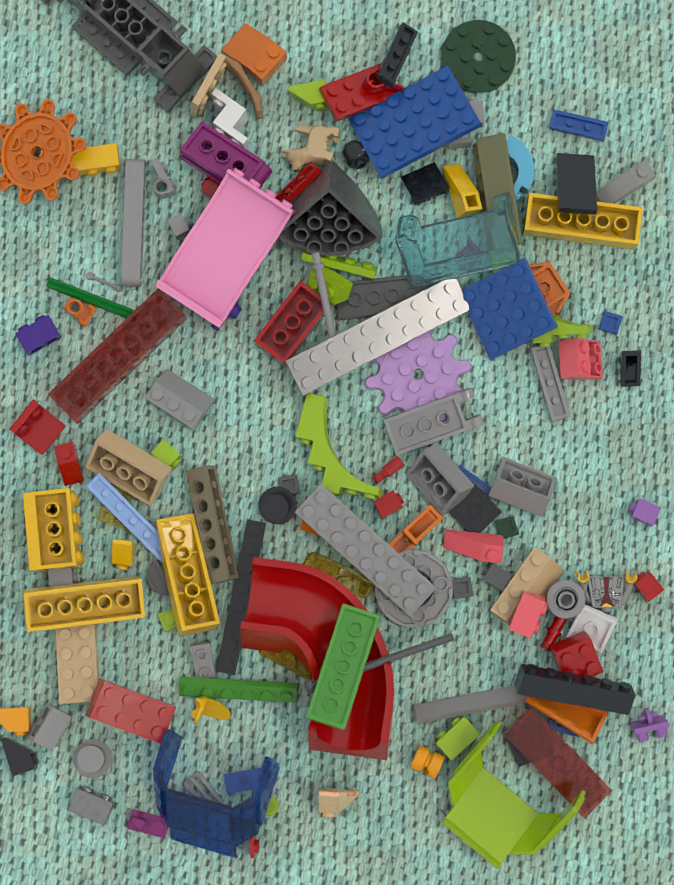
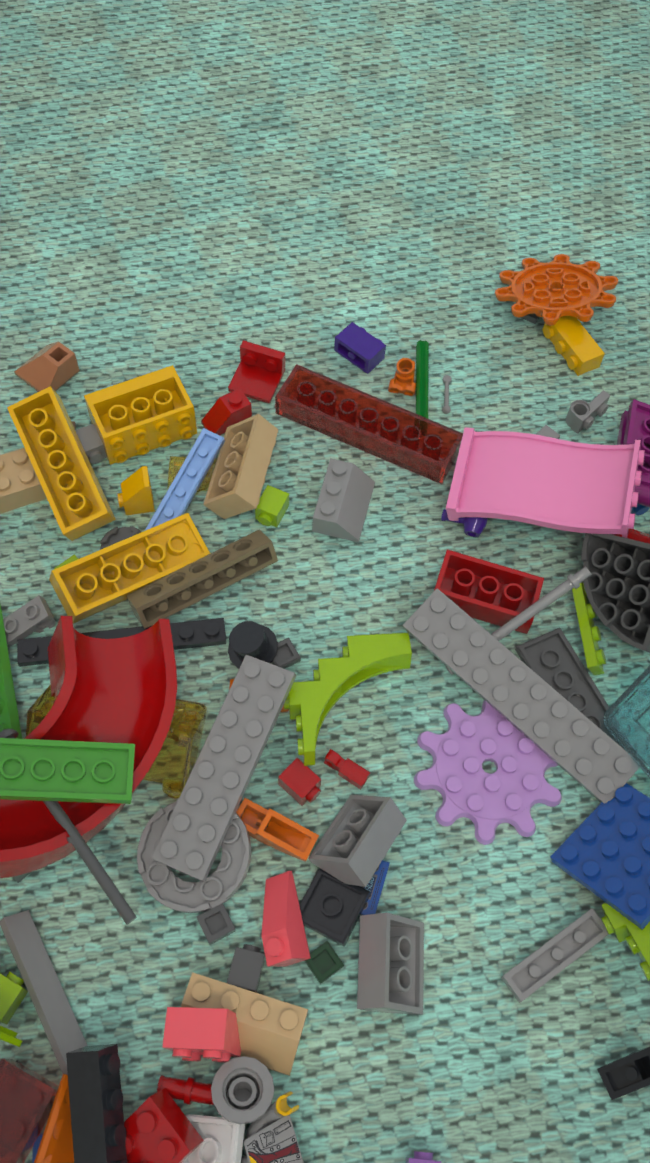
camera: 65 degrees right, 20 degrees down
(132, 222) = (524, 399): light grey beam -> none
(337, 286) = (555, 621): lime brick -> none
(423, 424) = (427, 793): light grey hinge -> none
(580, 359) = (609, 989): coral slope -> none

